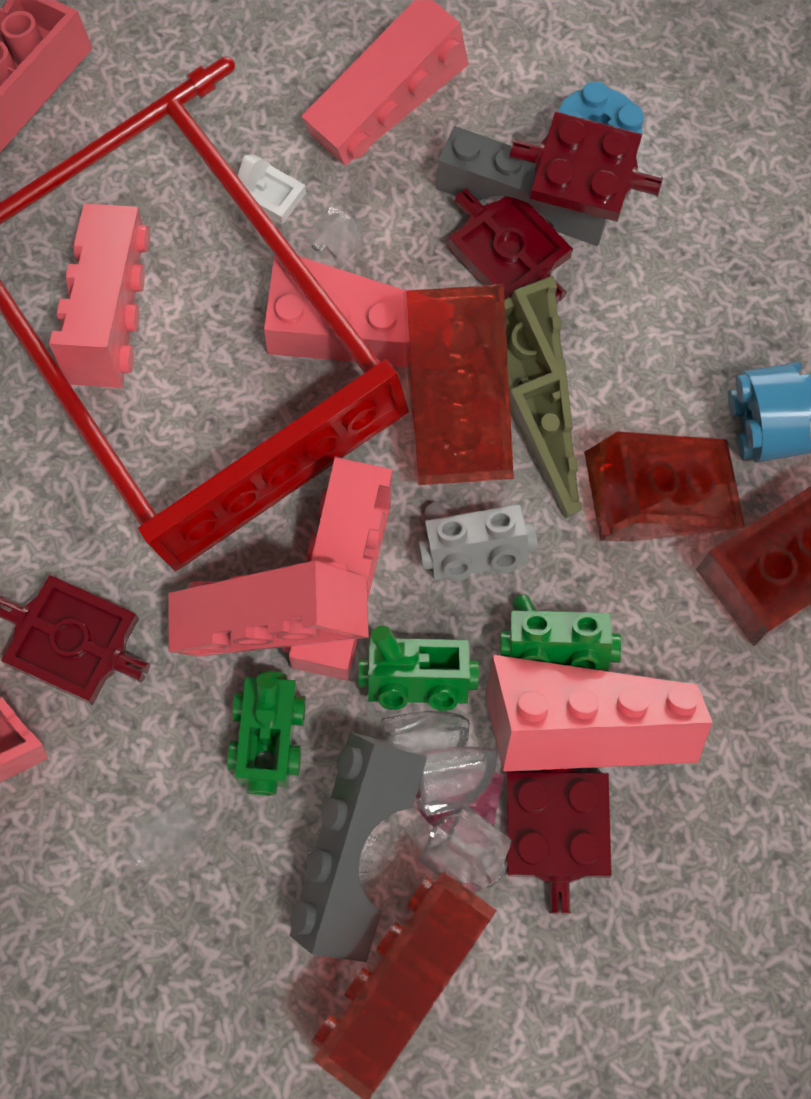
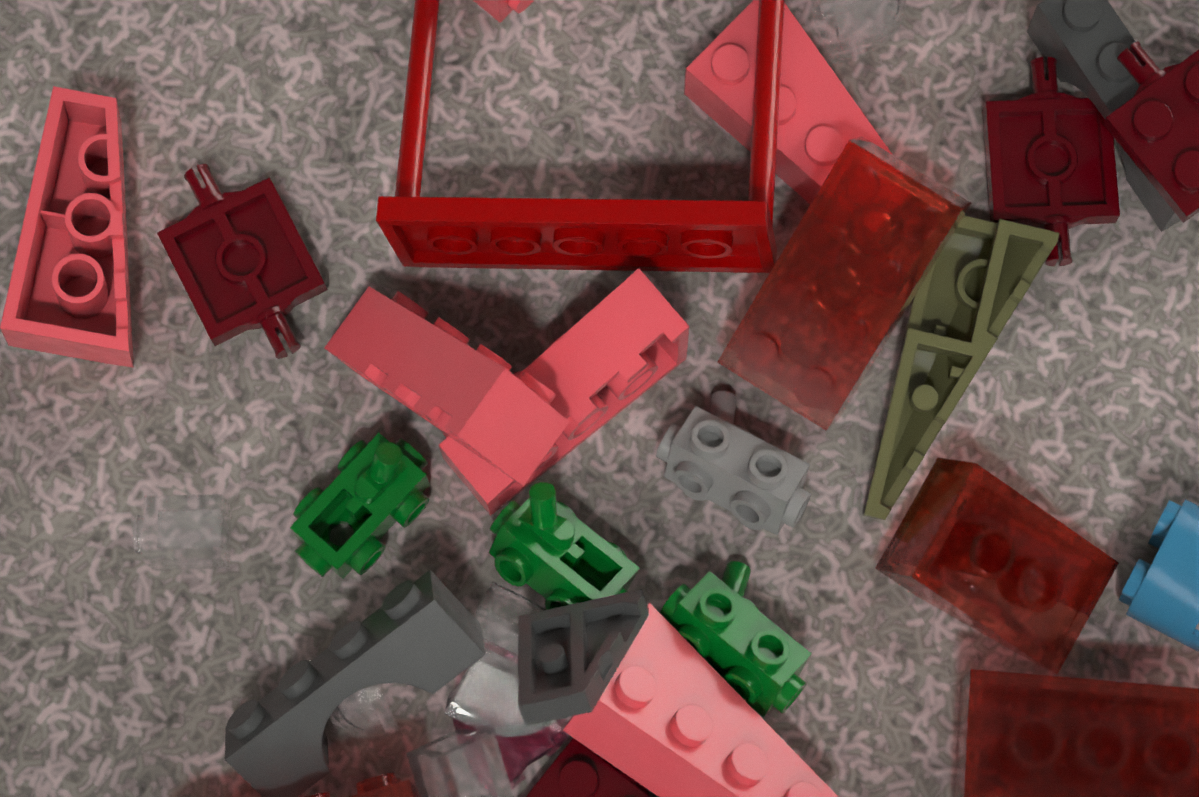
camera: 45 degrees right, 5 degrees up
(479, 716) = (573, 654): none -> dark grey wing

